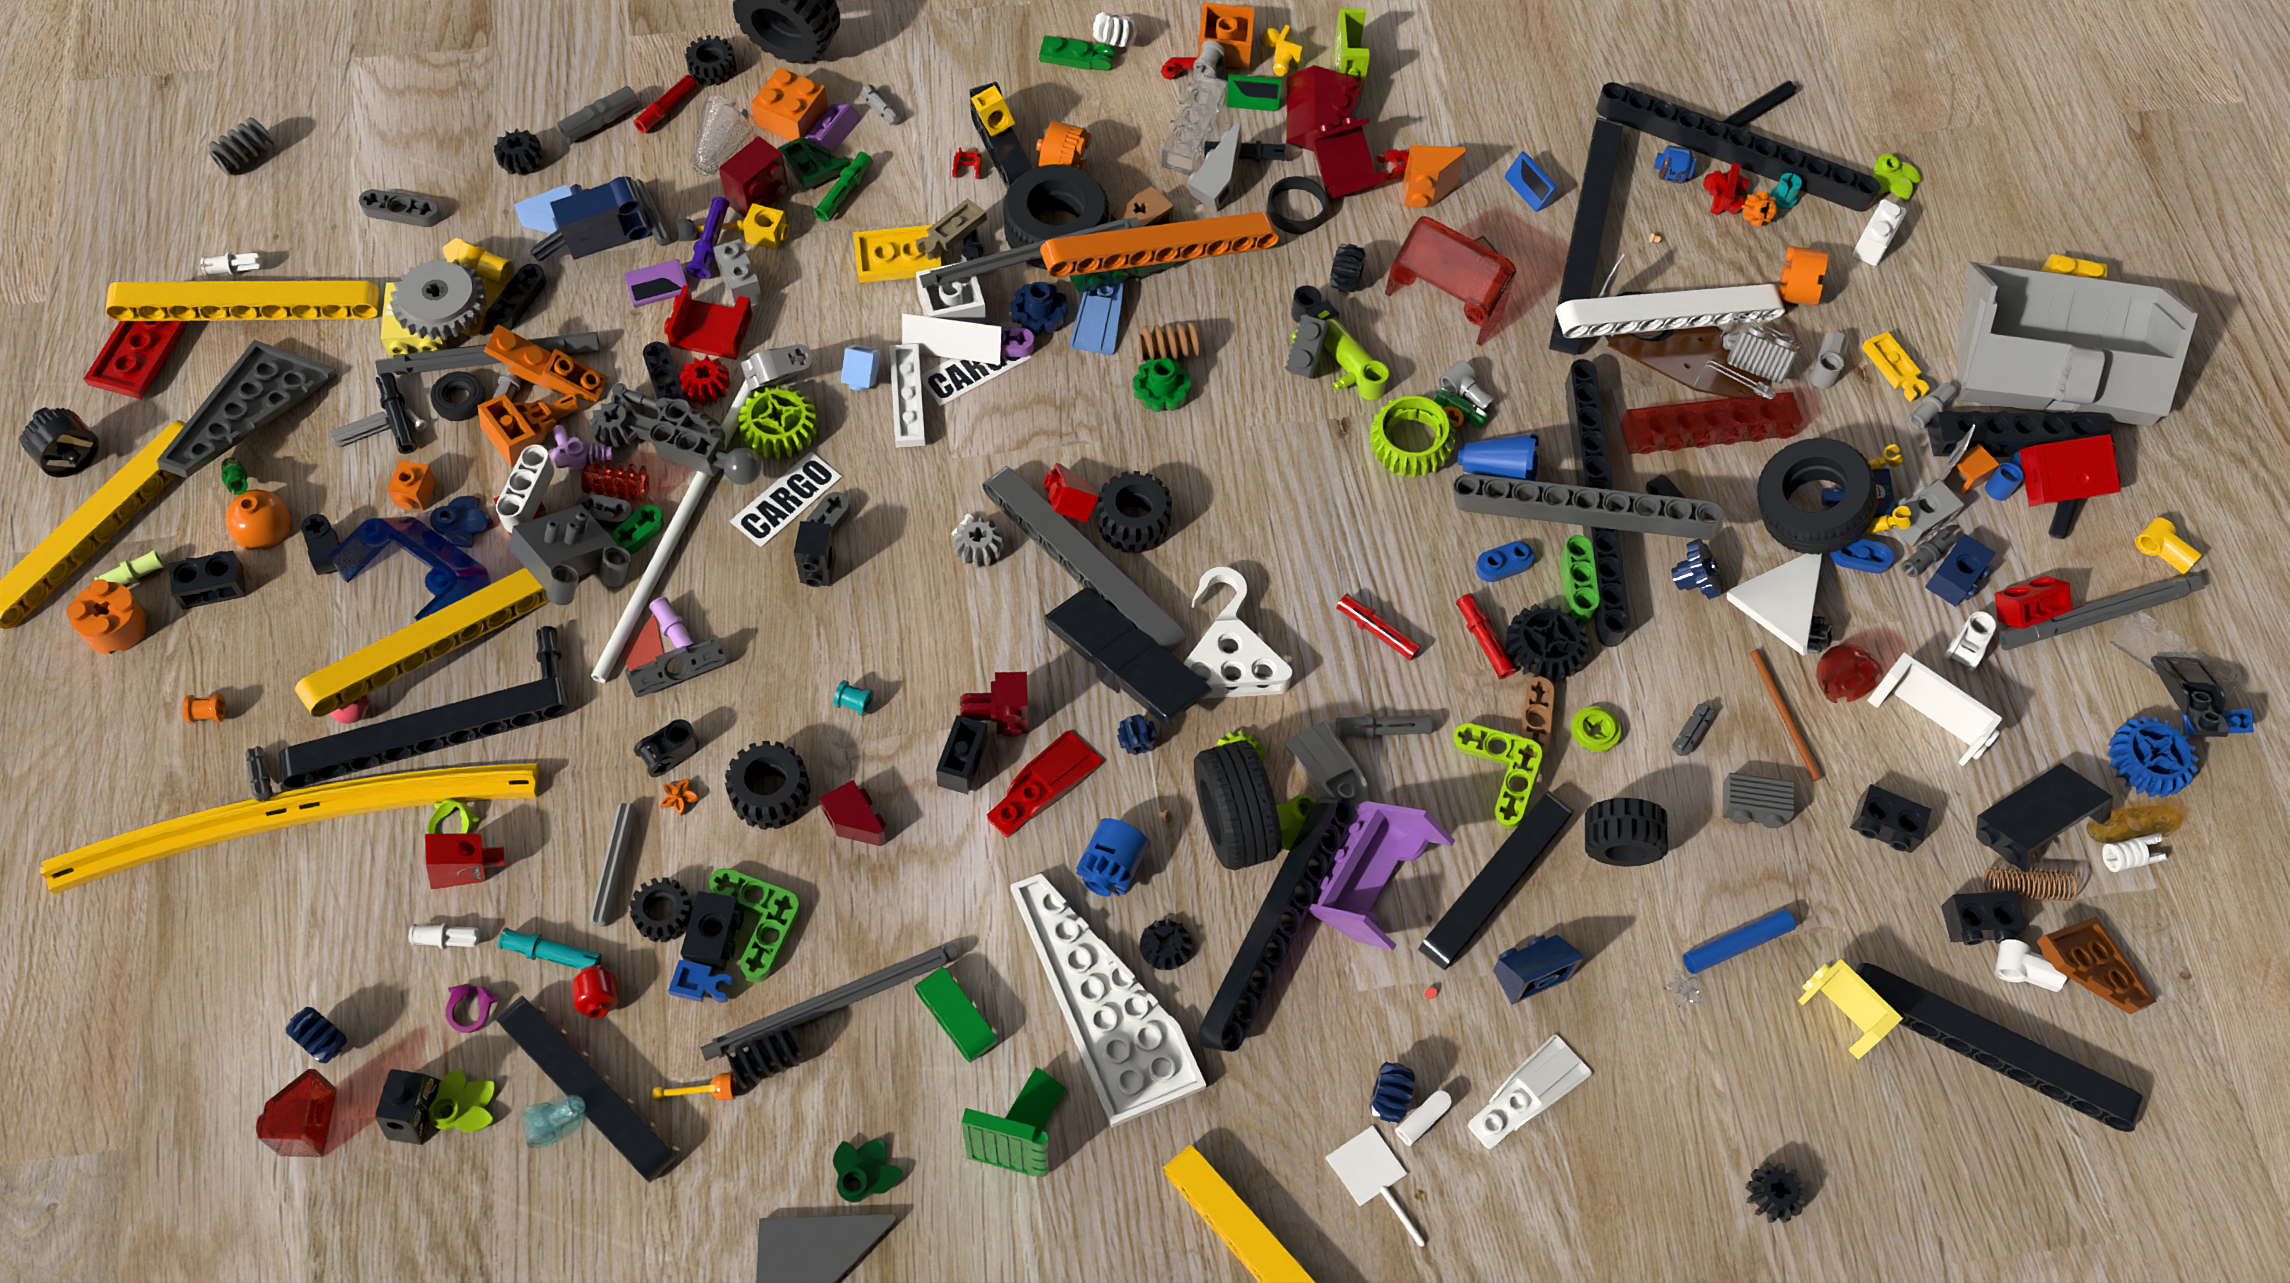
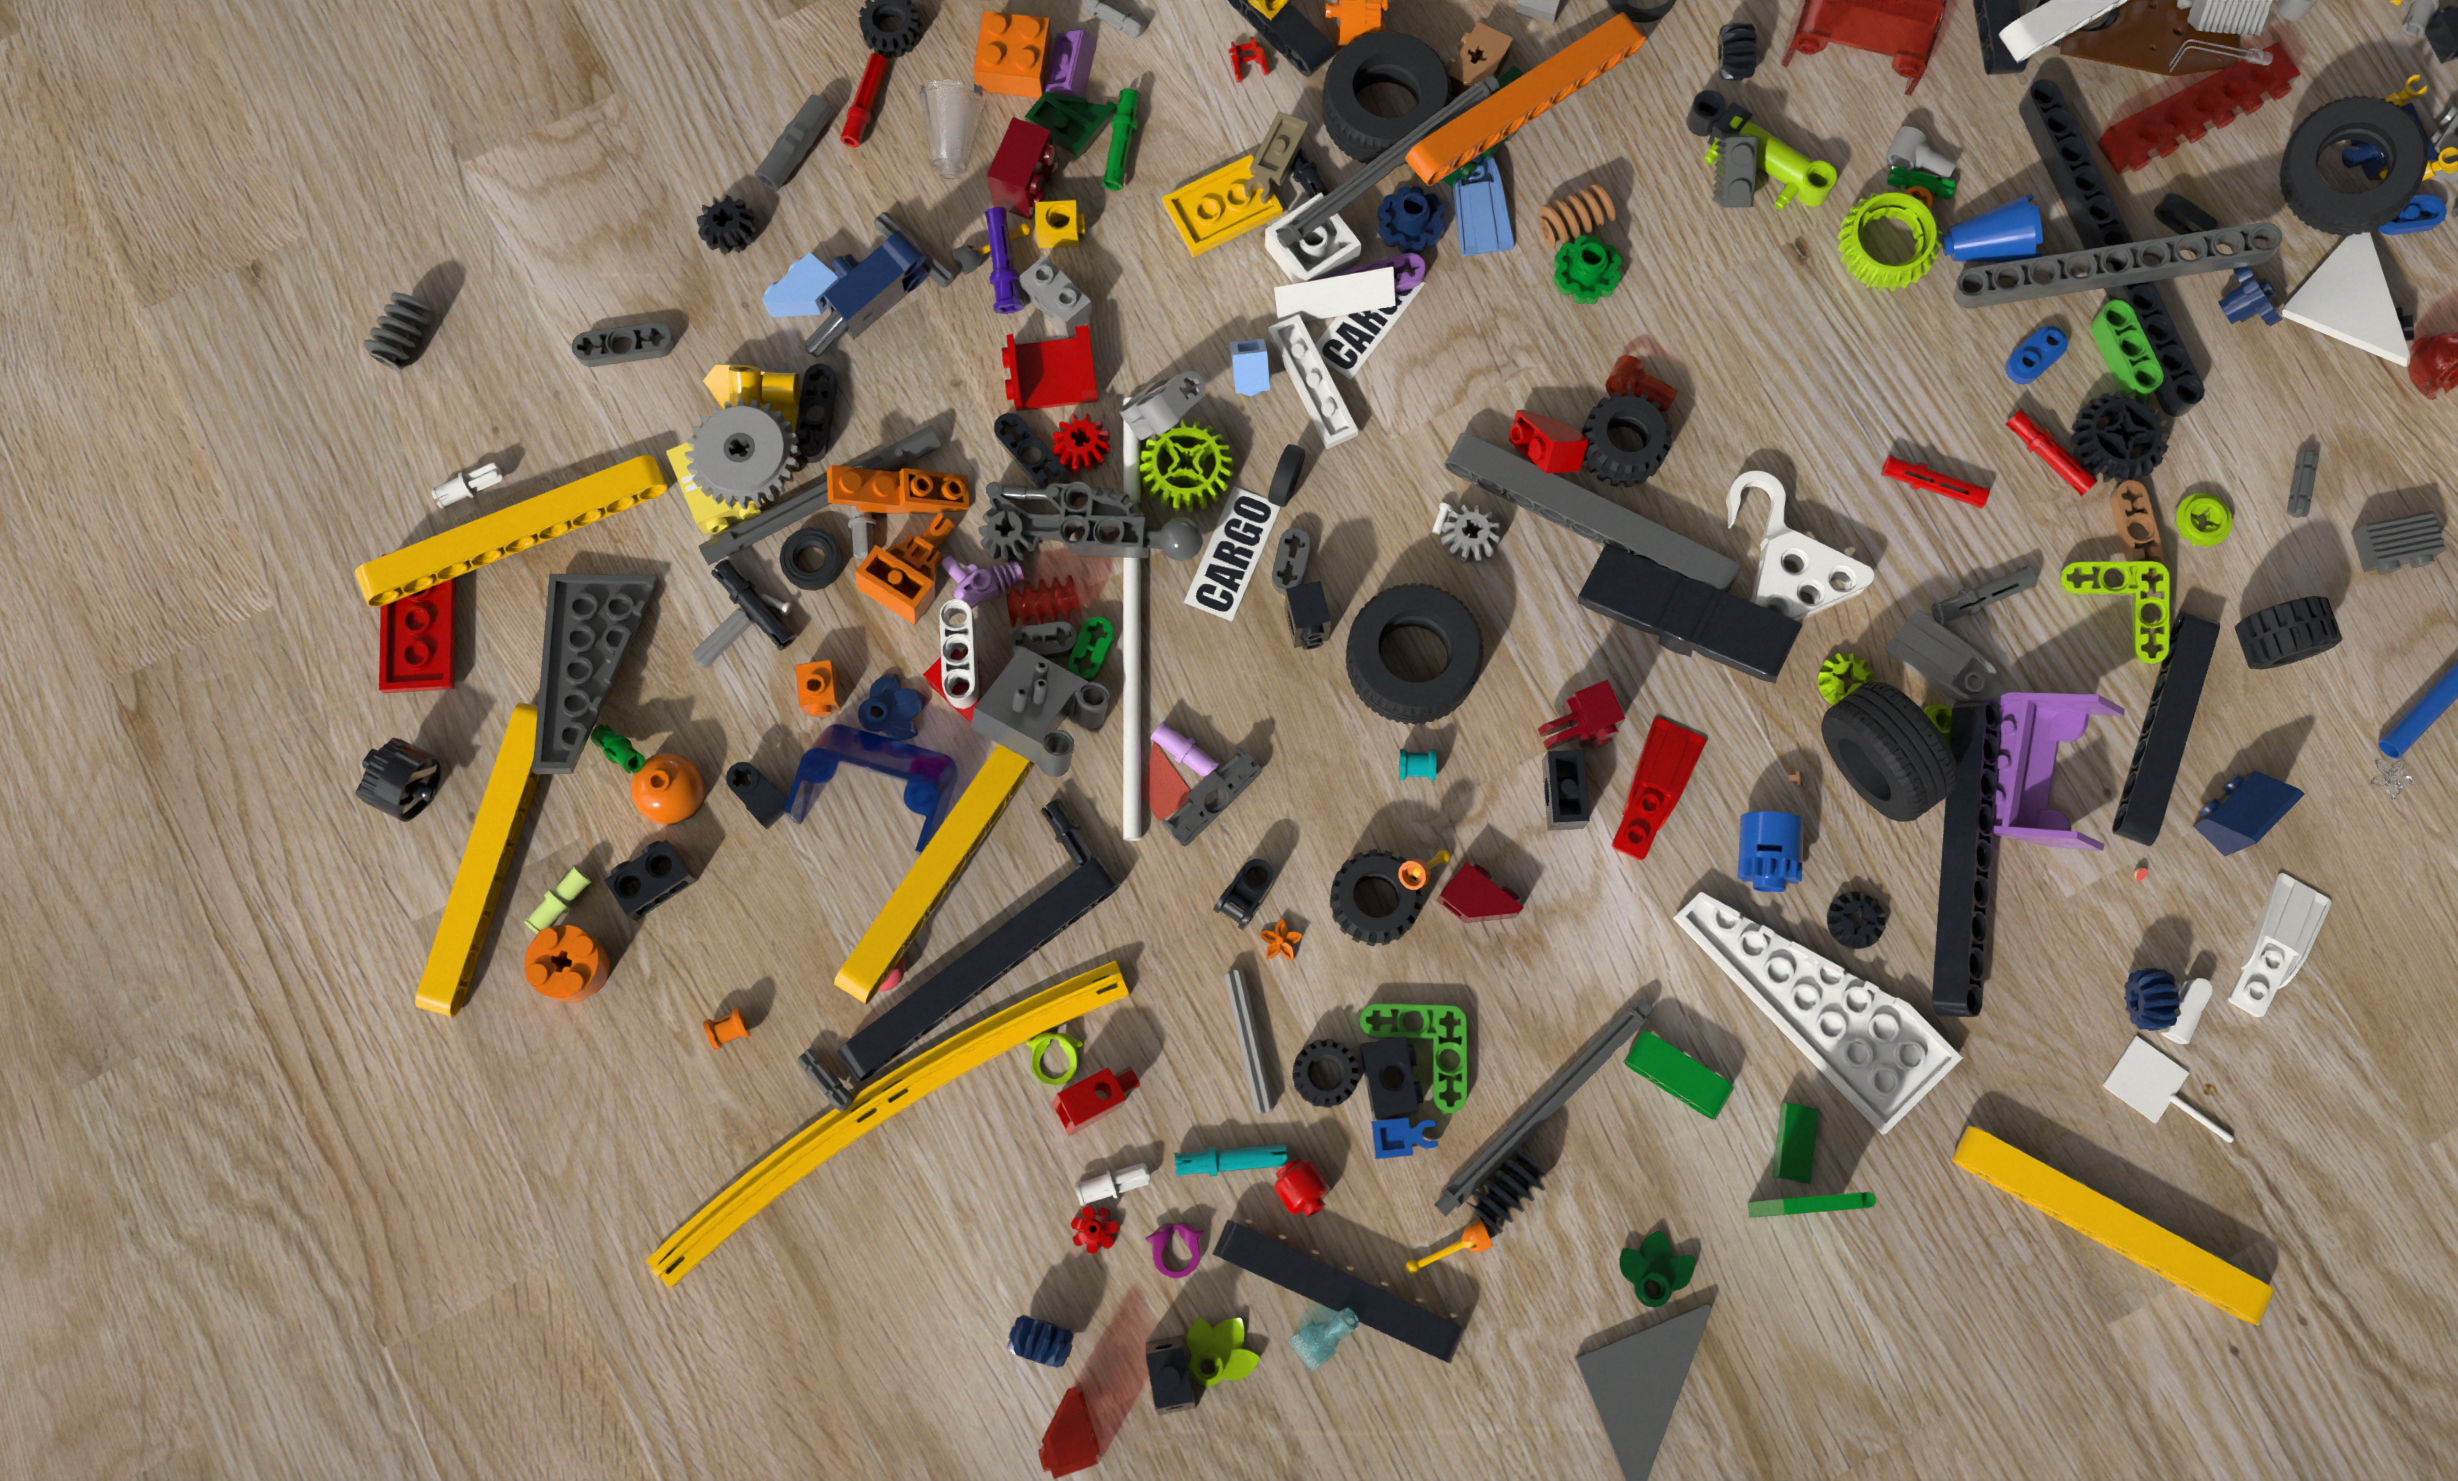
camera: 15 degrees left, 15 degrees up
(412, 968) = (1103, 1226): none -> red plant
(655, 282) = (966, 339): medium lavender slope -> none
(806, 767) = (1420, 870): none -> orange hinge
(850, 450) = (1286, 475): none -> black tyre
(879, 576) = (1423, 608): none -> black tyre
(1137, 734) = (1735, 699): dark blue gear -> none
(1162, 467) = (1630, 375): none -> clear red piece
(1785, 714) = (2388, 430): dark orange axle -> none

